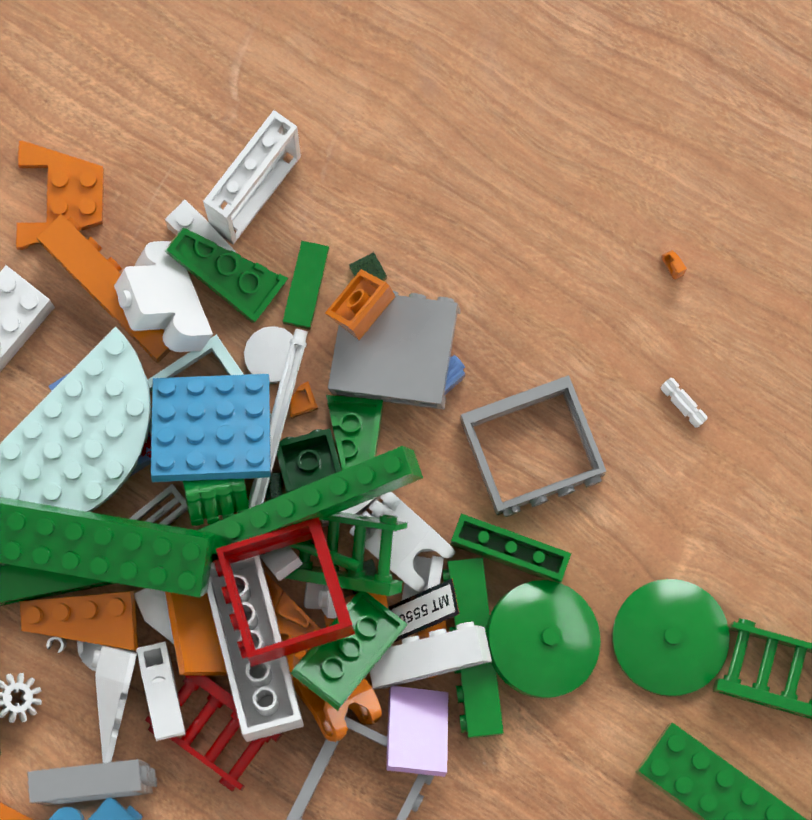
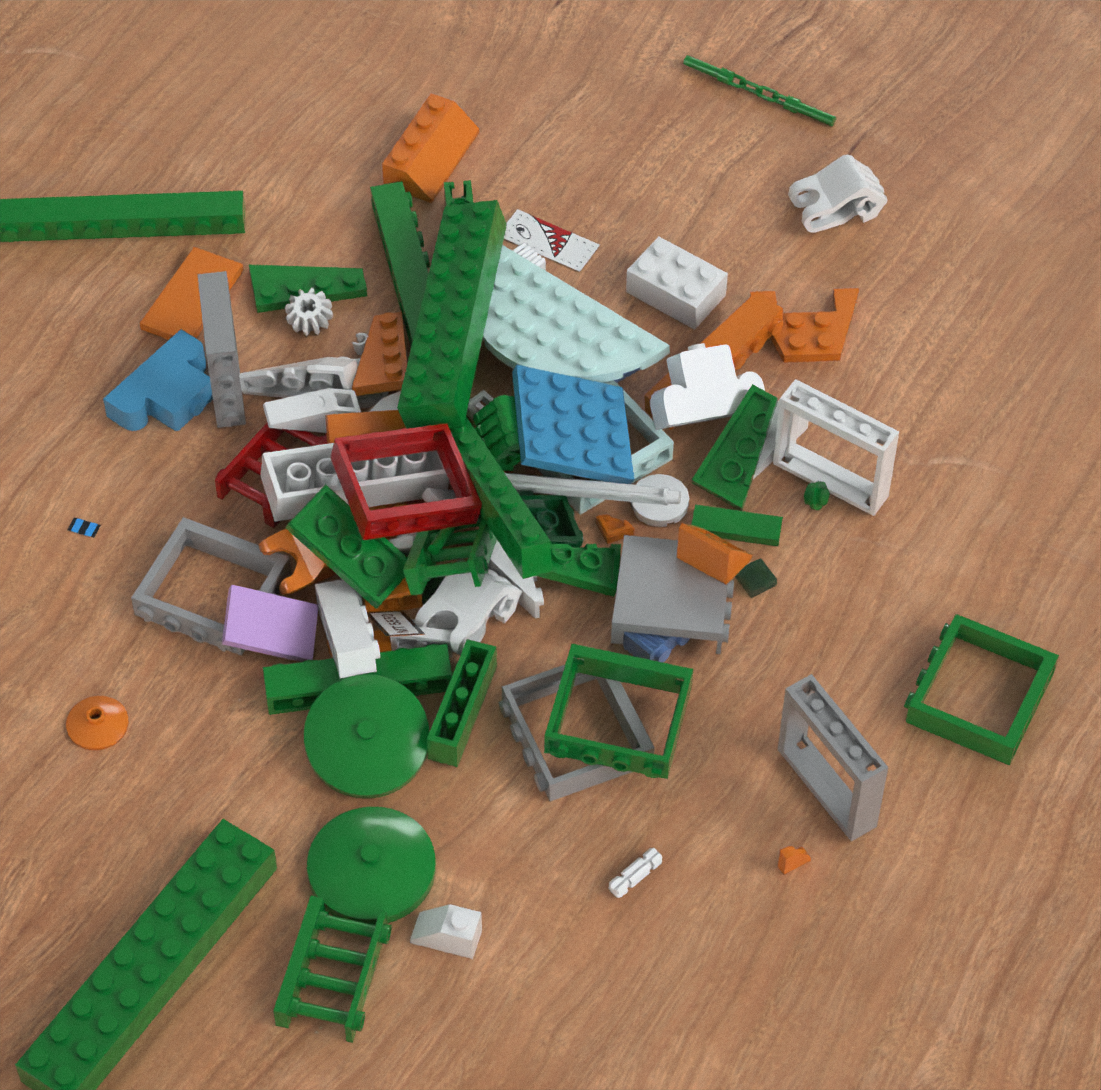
camera: 90 degrees right, 25 degrees down
(278, 206) = (816, 495): none -> green plate
(523, 43) = (962, 731): none -> green window
(555, 353) = (627, 670): none -> green window
(604, 215) = (853, 812): none -> light grey window
(742, 569) = (449, 930): none -> white slope

